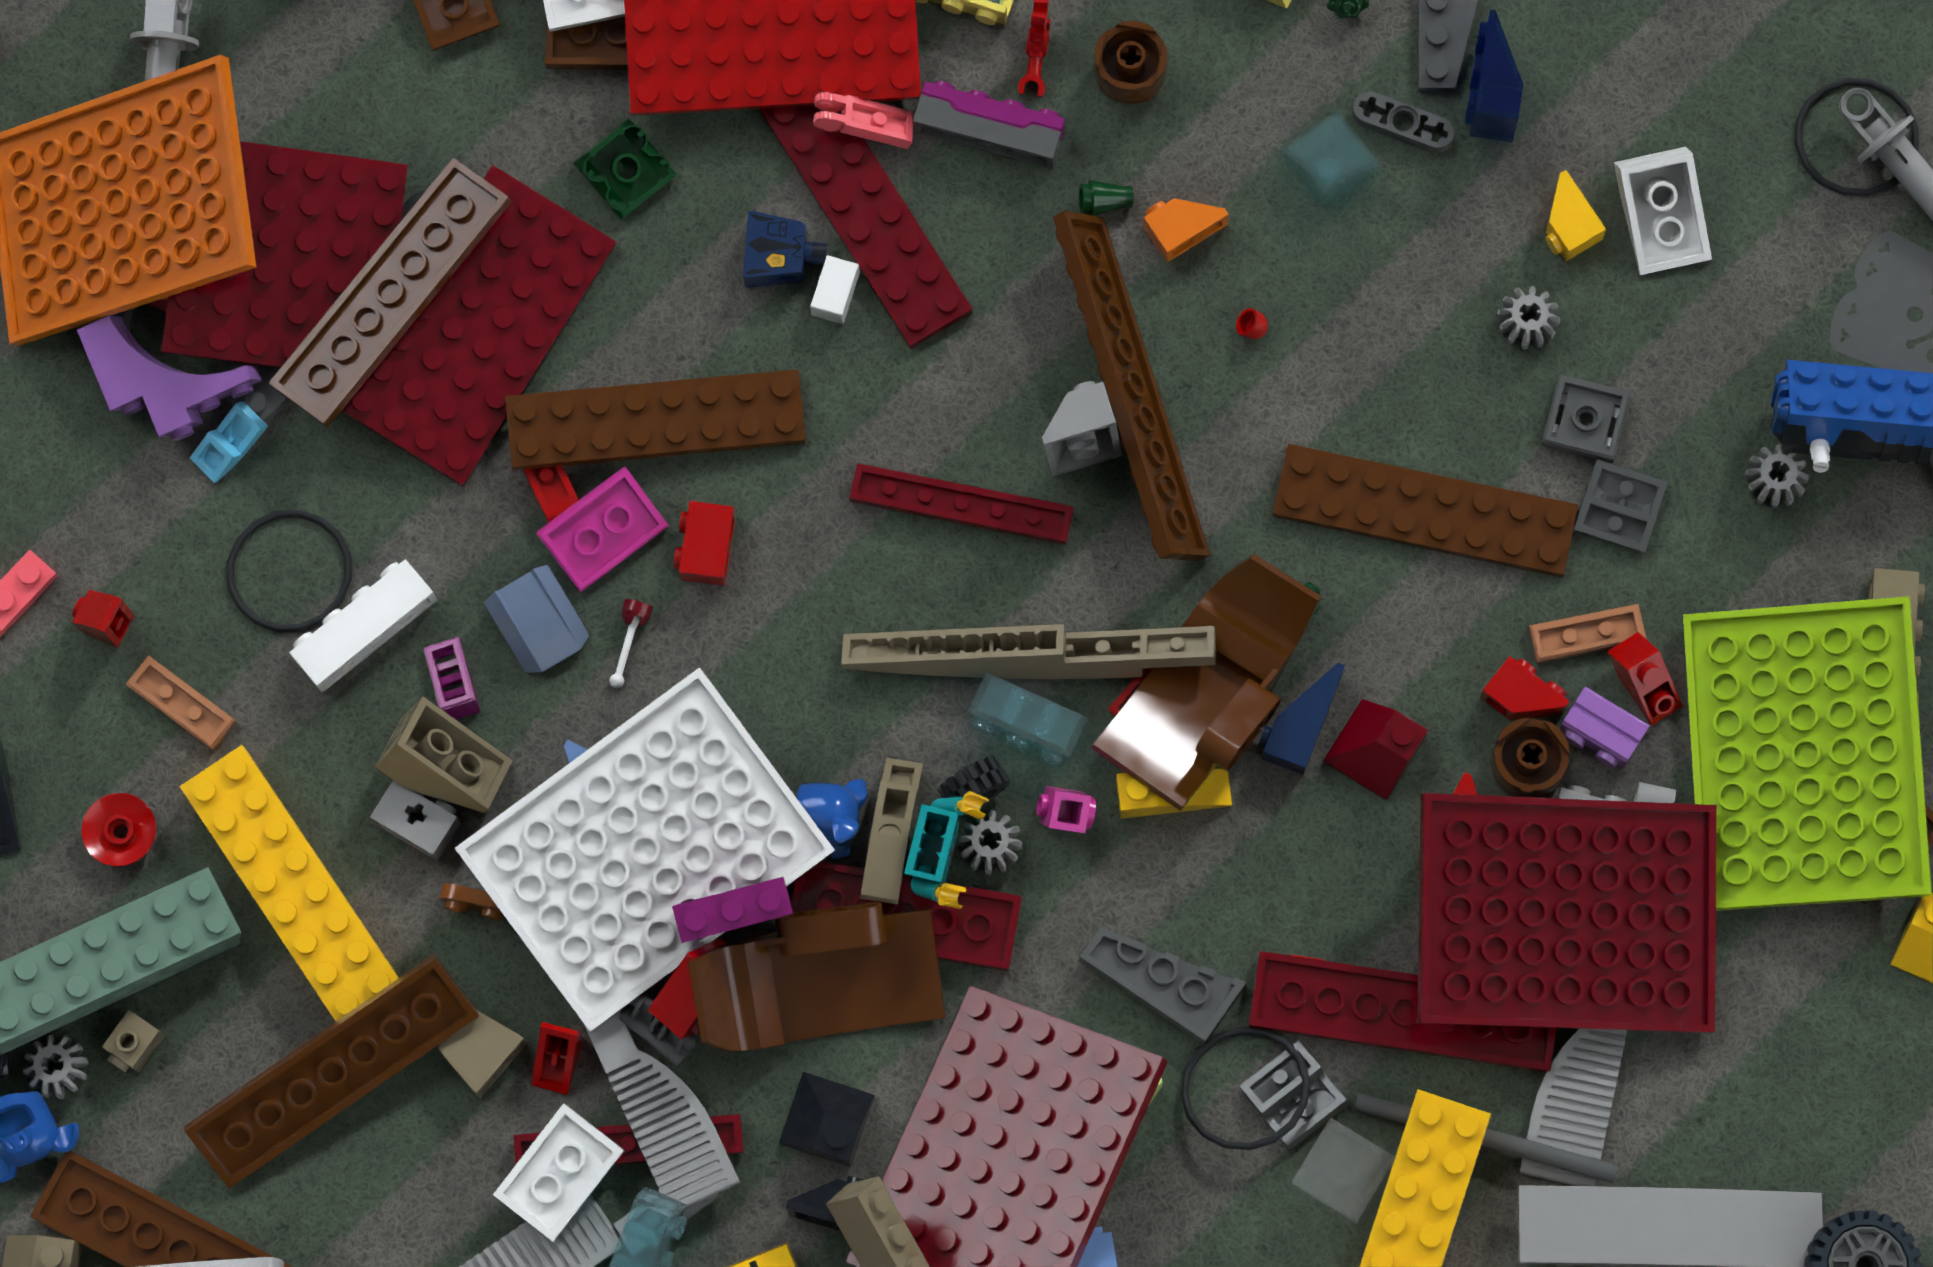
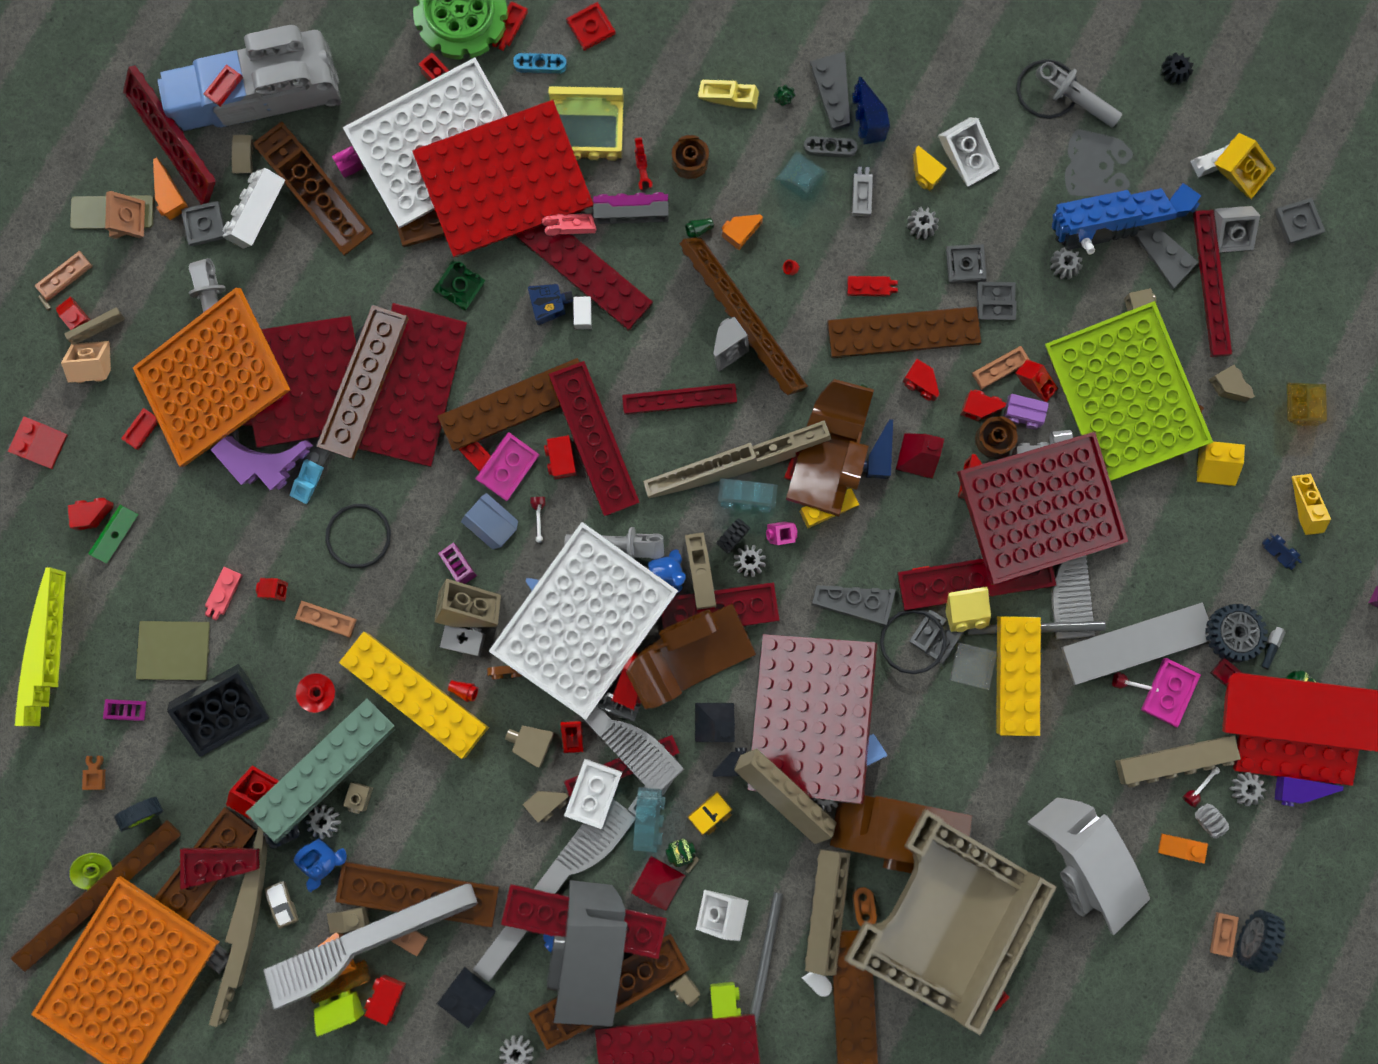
camera: 25 degrees left, 5 degrees up
(331, 1071) = (462, 780): reddish brown plate -> none
(362, 625) = (404, 551): white brick -> none
(388, 912) = (464, 690): none -> red cone
(464, 1163) = (543, 804): none -> dark tan slope
(732, 909) = (638, 637): magenta brick -> none
(777, 527) = (594, 438): none -> dark red plate
(793, 746) = (636, 544): none -> light grey piece
(935, 844) = (725, 574): teal torso -> none
(1366, 1060) = (968, 609): none -> light yellow slope
(1392, 405) = (871, 286): none -> red hinge
(1427, 606) = (922, 378): none -> red slope
(1433, 227) = (862, 193): none -> light grey hinge

